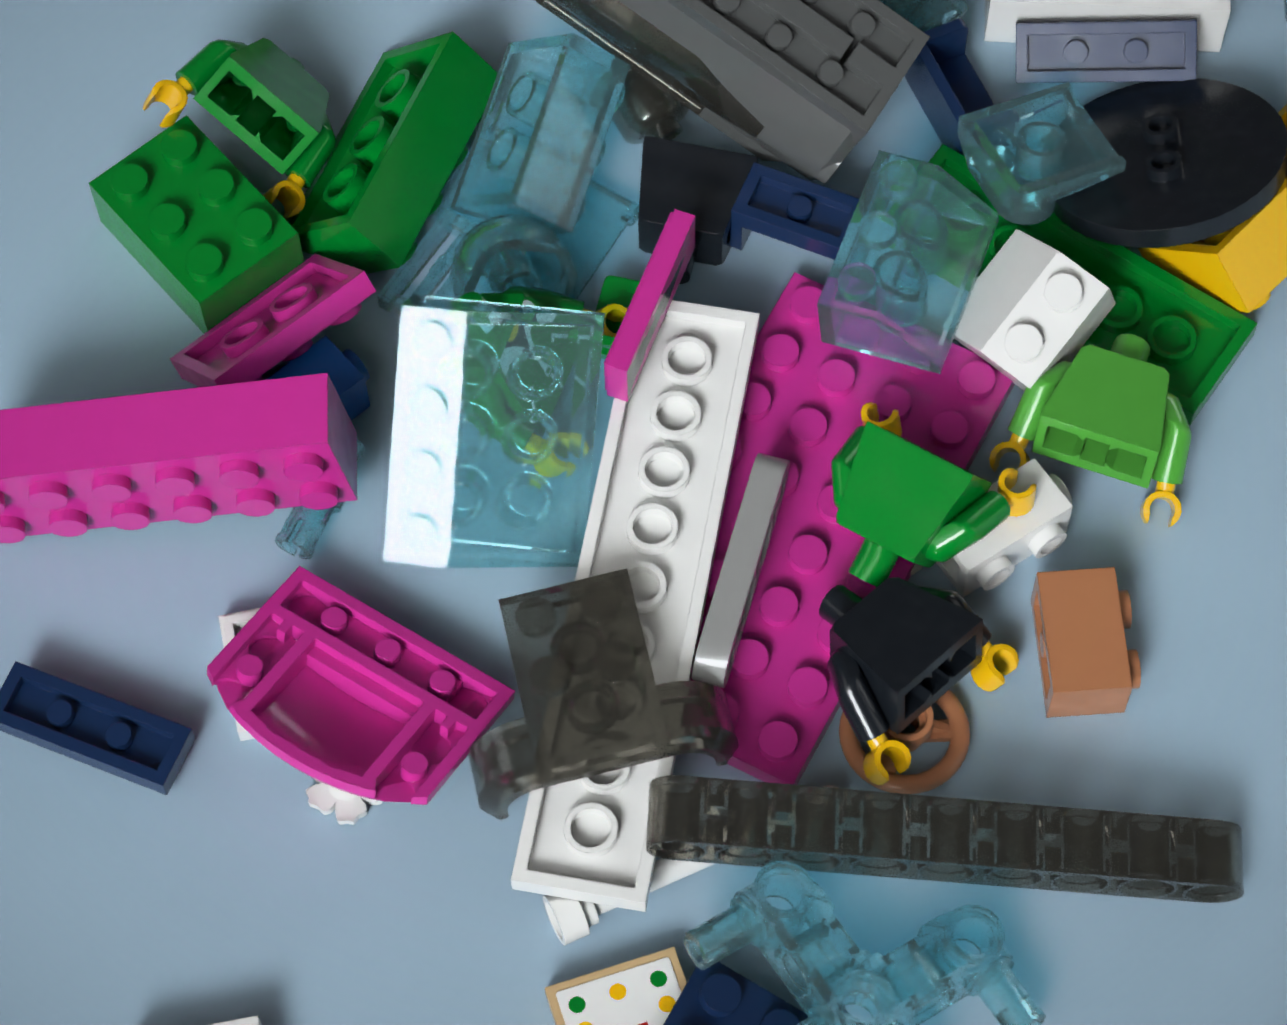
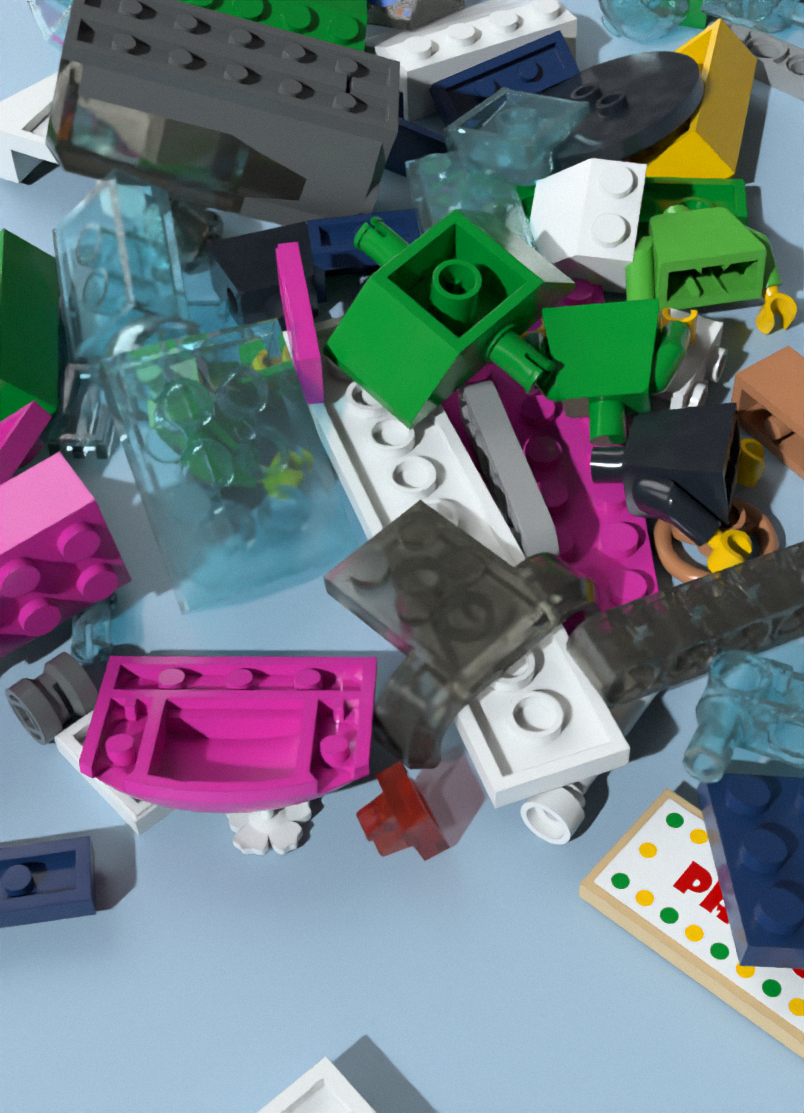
camera: 30 degrees left, 15 degrees down
(220, 581) = (52, 697): none -> dark grey wheel
(445, 849) = (401, 816): none -> clear red tile
(720, 374) = (445, 312): none -> green slope

